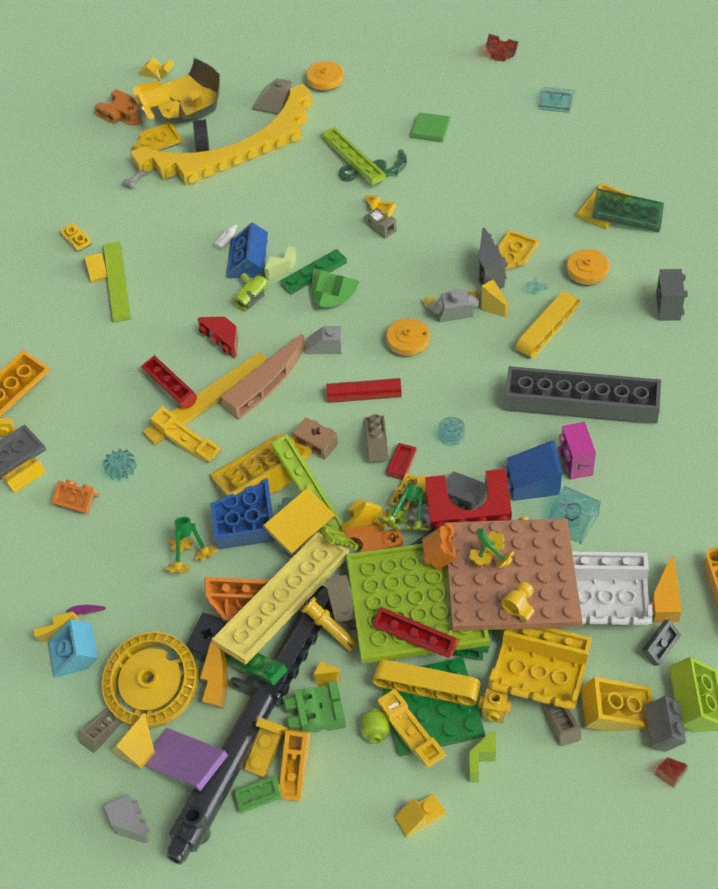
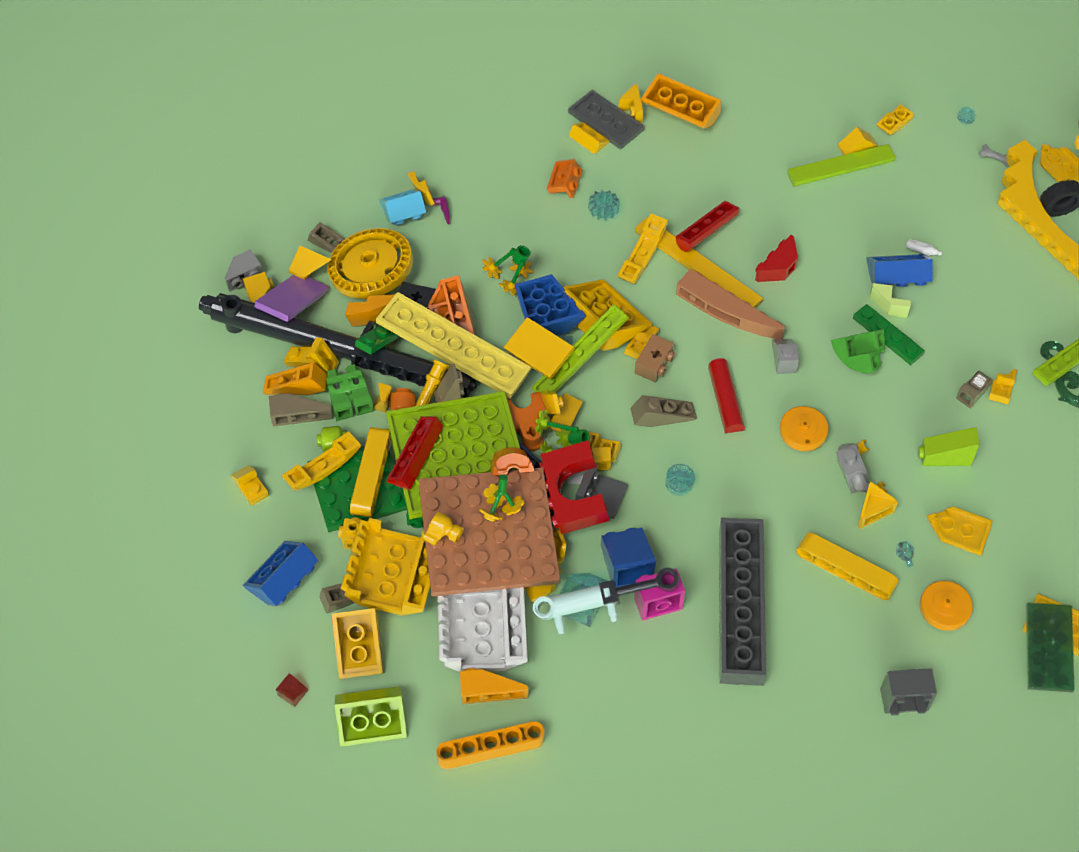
camera: 80 degrees right, 5 degrees up
(85, 189) = (966, 115): none -> clear light blue plate
(162, 802) = (257, 286): none -> yellow slope
(251, 292) = (843, 279): lime piece -> none
(258, 794) = (266, 359): bright green plate -> none
(330, 765) = (292, 409): none -> dark tan slope
(338, 655) = (402, 399): none -> orange head
(339, 538) = (525, 383): lime piece -> none
(401, 461) = (638, 438): red tile -> none
(442, 241) = (950, 449): none -> lime slope
(483, 751) = (310, 530): lime slope -> none
(491, 262) = (925, 495): dark grey slope -> none
(535, 780) = (281, 572): none -> blue slope
(589, 479) = (601, 595): none -> light aqua piece
(661, 642) = (431, 681): pearl dark grey plate -> none
(665, 724) = (335, 680): dark grey brick -> none

